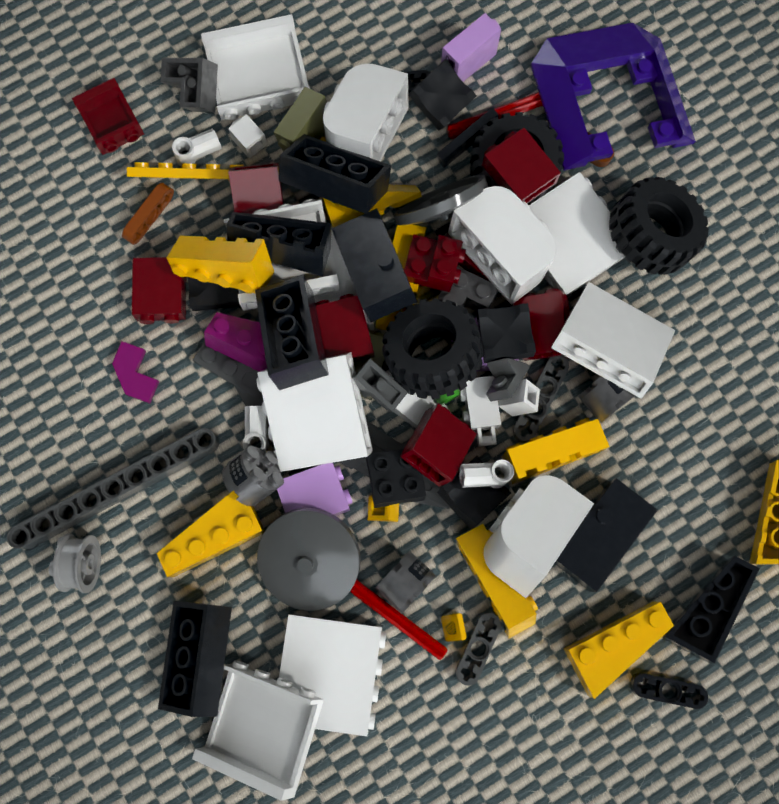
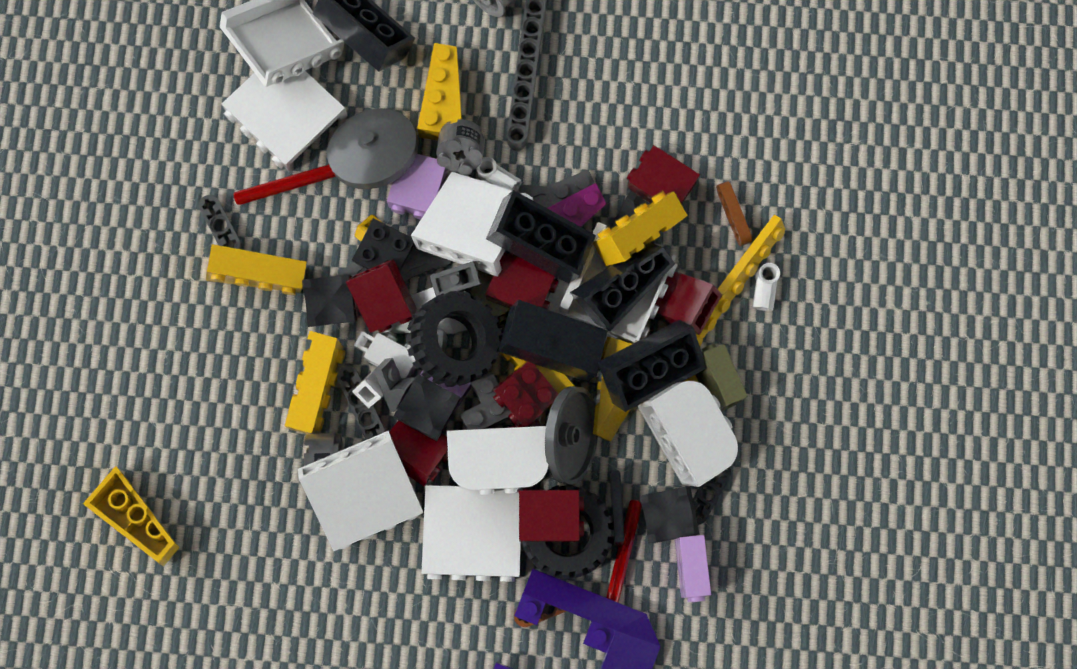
camera: 125 degrees right, 0 degrees up
(108, 116) = (841, 237): dark red panel -> none
(126, 367) = (619, 119): magenta tile -> none
(195, 78) = (823, 322): flat silver brick -> none
(247, 136) = (747, 333): white brick -> none
(256, 66) = (804, 384): white panel -> none
(405, 582) = (303, 203): flat silver brick -> none
(453, 627) = (247, 219): yellow slope -> none
(484, 474) = (334, 310): white piece -> none
(534, 532) = (263, 315): white brick -> none
(605, 535) = (225, 373): black brick -> none
(614, 648) = (144, 318): yellow wedge -> none
(673, 210) = (416, 629): black tyre -> none
(688, 687) = (74, 337): black beam -> none
(711, 614) = (109, 405): black wedge -> none

